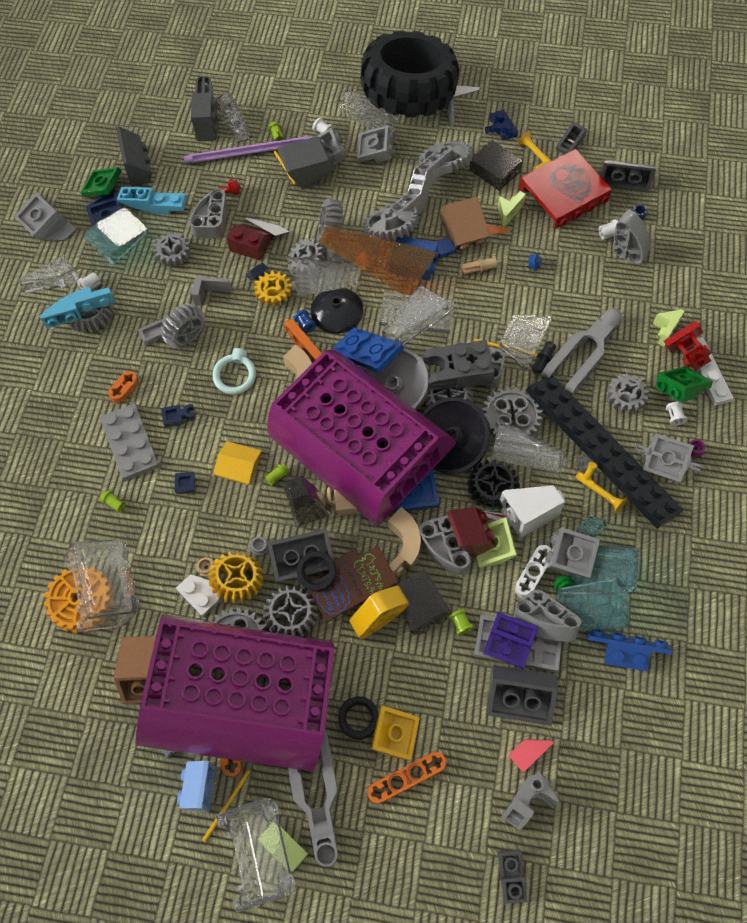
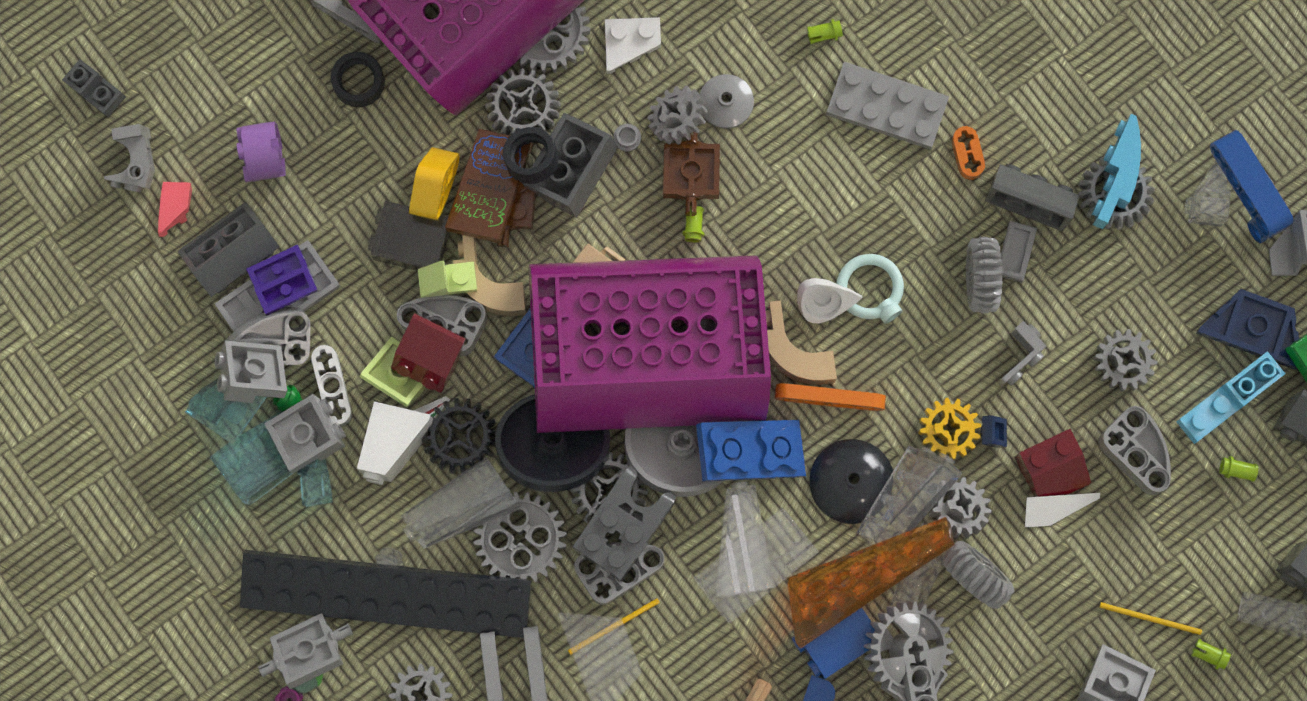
camera: 130 degrees right, 15 degrees up
(41, 244) = (1252, 186): none -> blue beam
(89, 281) = (1161, 224): white bush -> none
(116, 235) = (1204, 305): clear light blue slope -> none
(122, 339) = (1032, 197): none -> dark grey slope
(174, 414) = (873, 177): dark blue plate -> none
(184, 180) = (1238, 469): none -> lime pin
(185, 483) = (774, 121): dark blue plate -> none
(198, 525) = (732, 113): none -> light grey dish
(201, 566) = (652, 59): tan plate -> none
(215, 528) = (677, 115): none -> light grey gear
(233, 186) = (1162, 516): red plate -> none
(235, 588) = (632, 77): yellow gear -> none
(237, 151) = (1212, 593): lavender piece -> none
(237, 462) = (751, 198): yellow slope -> none
(249, 497) = (691, 172): none -> reddish brown plate
(261, 384) = (824, 300): none -> white piece
(305, 501) = (618, 211): clear smoke slope -> none
(307, 160) = (1108, 634): dark grey slope -> none
(309, 322) = (866, 424): blue bush -> none
(395, 733) = (310, 99): yellow slope -> none
(404, 773) = (267, 76): orange beam -> none
(424, 555) = (447, 279): none -> yellowish green slope
(452, 725) = (261, 150): none -> medium lavender brick
(461, 622) = (351, 260): lime bush -> none
(543, 357) = (556, 650): black axle -> none
(576, 596) = (250, 371): none -> light grey plate
(586, 479) = (370, 543): yellow piece -> none
(626, 651) = (165, 396): blue bracket -> none

